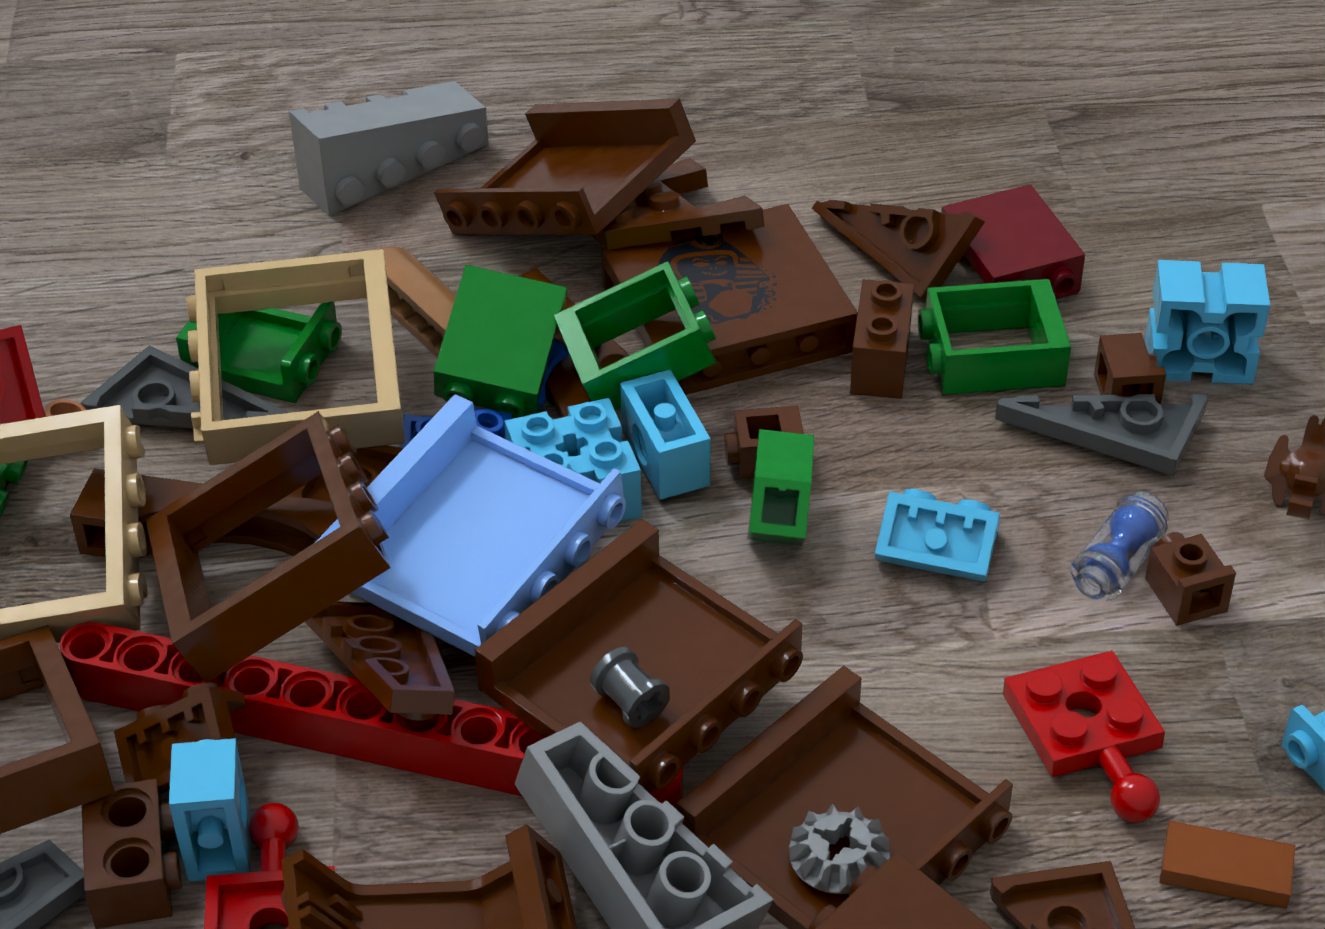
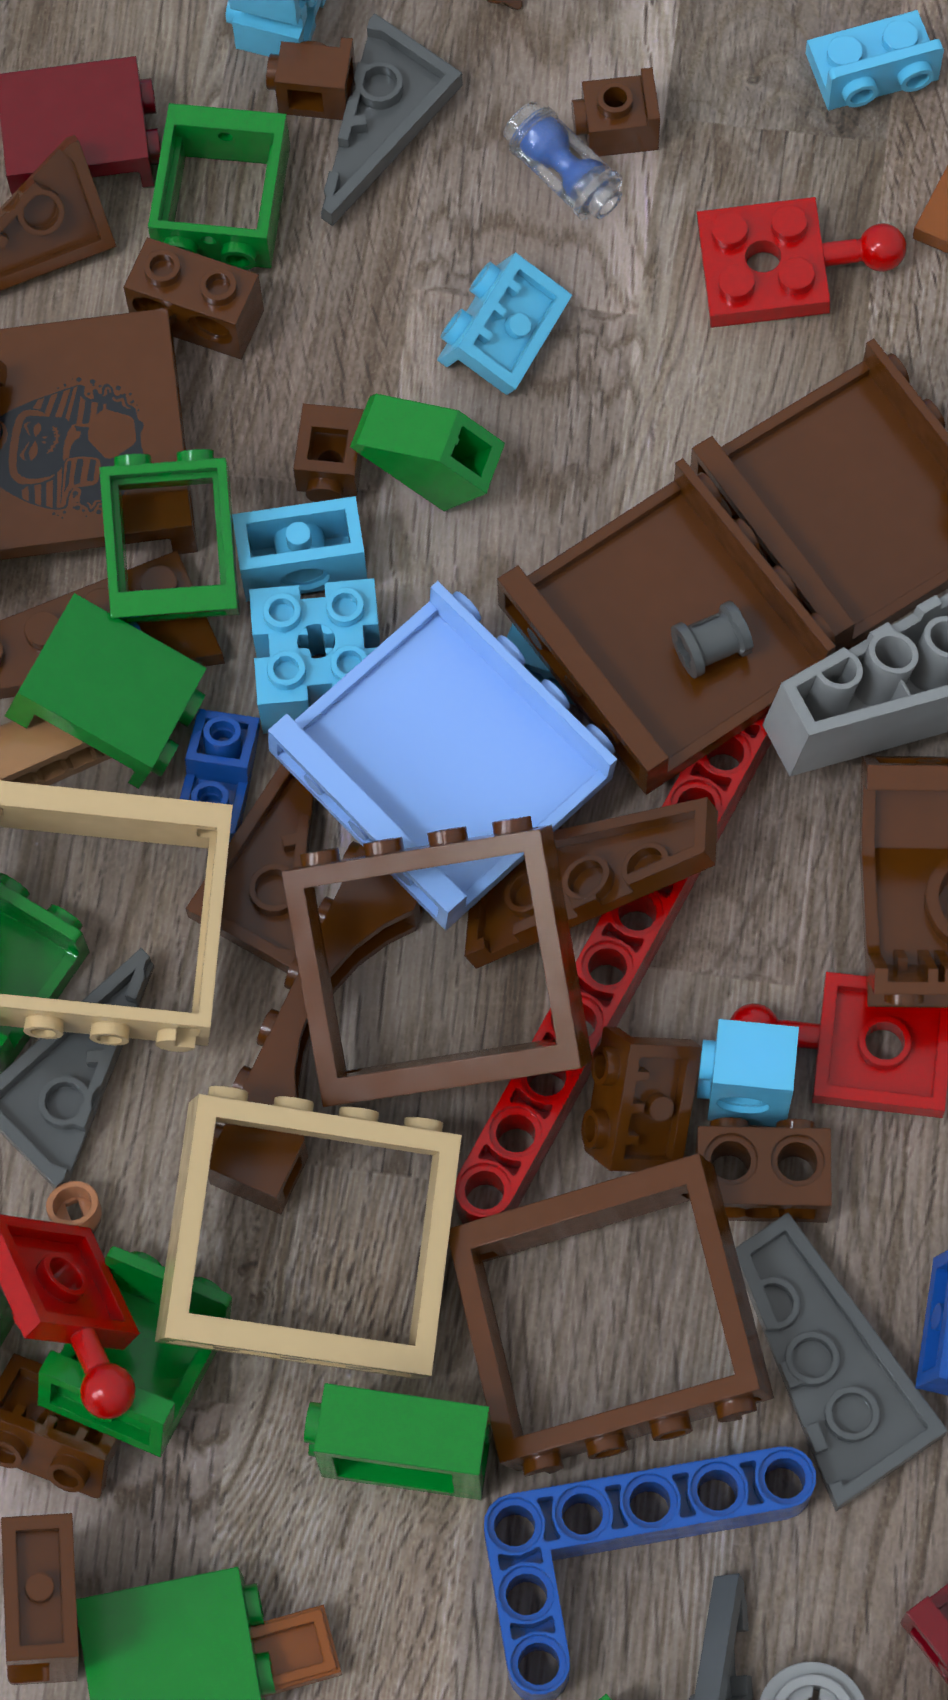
camera: 75 degrees left, 25 degrees up
(811, 853) = (901, 537): light grey gear -> none

